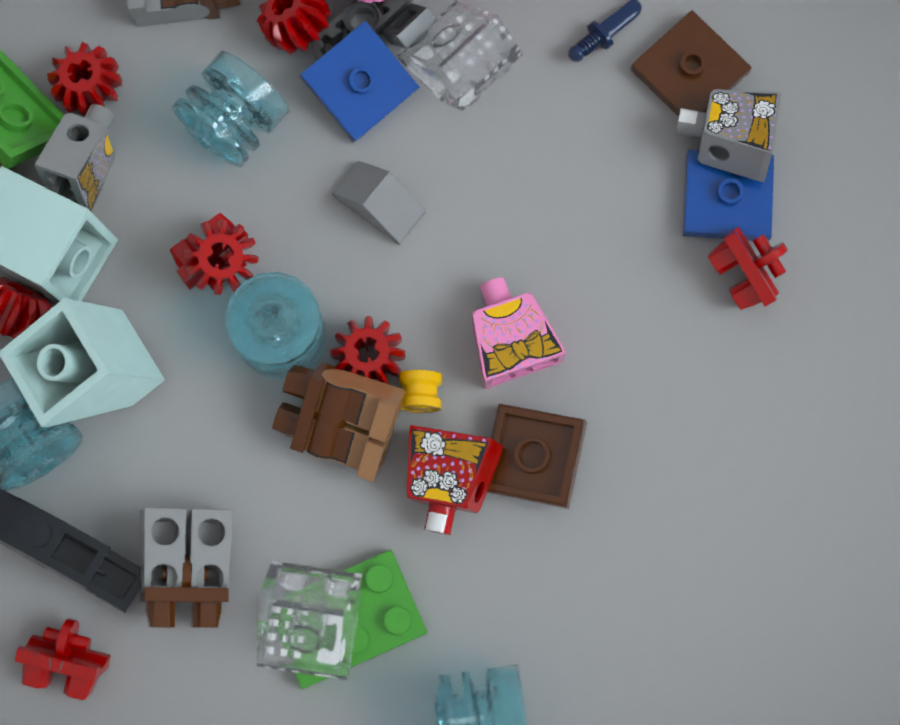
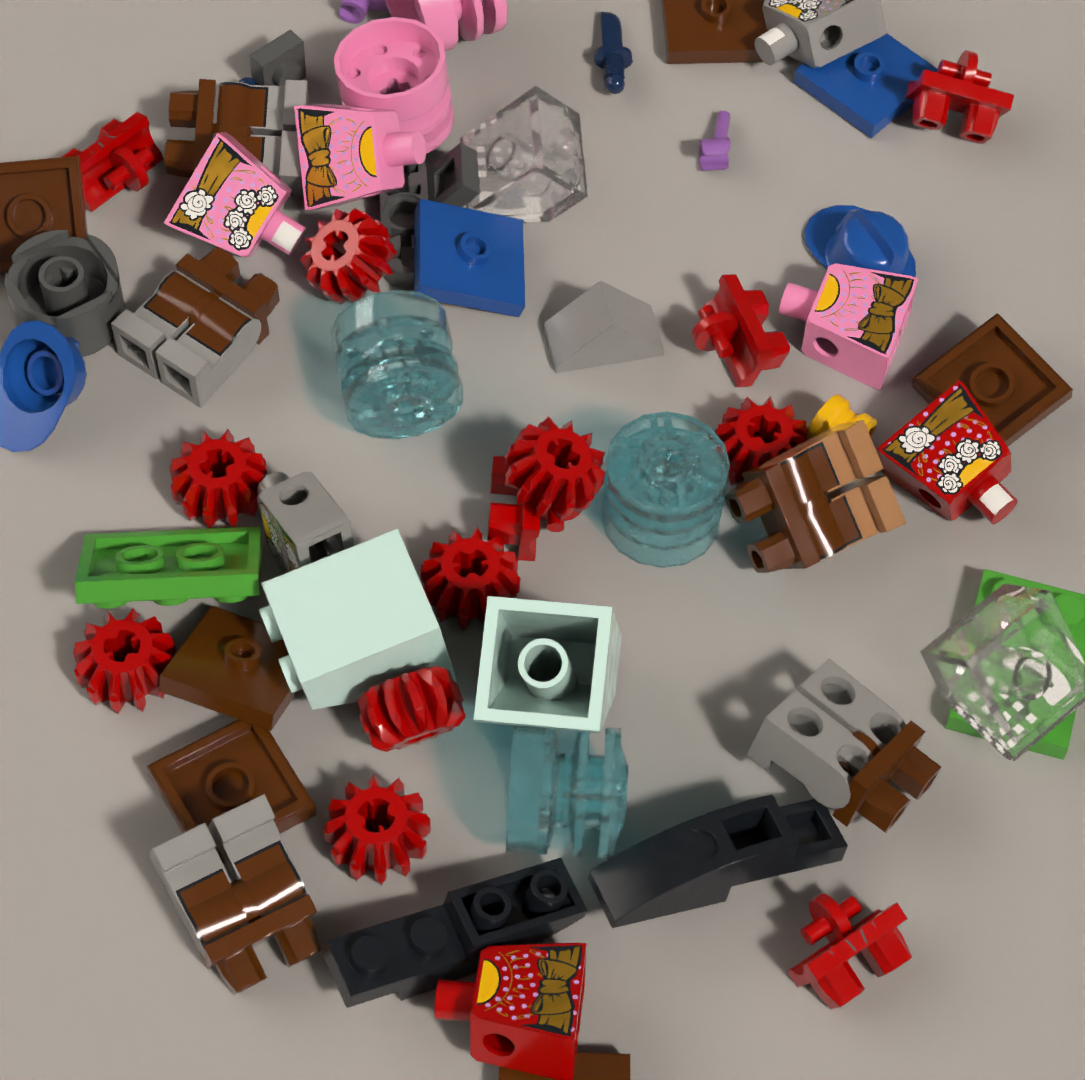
camera: 55 degrees left, 20 degrees down
(121, 256) = (467, 572): none -> red gear
(454, 260) = (734, 329): none -> red hips
(578, 155) = (714, 151): none -> medium lavender hand
(582, 297) = (859, 239): none -> blue piece

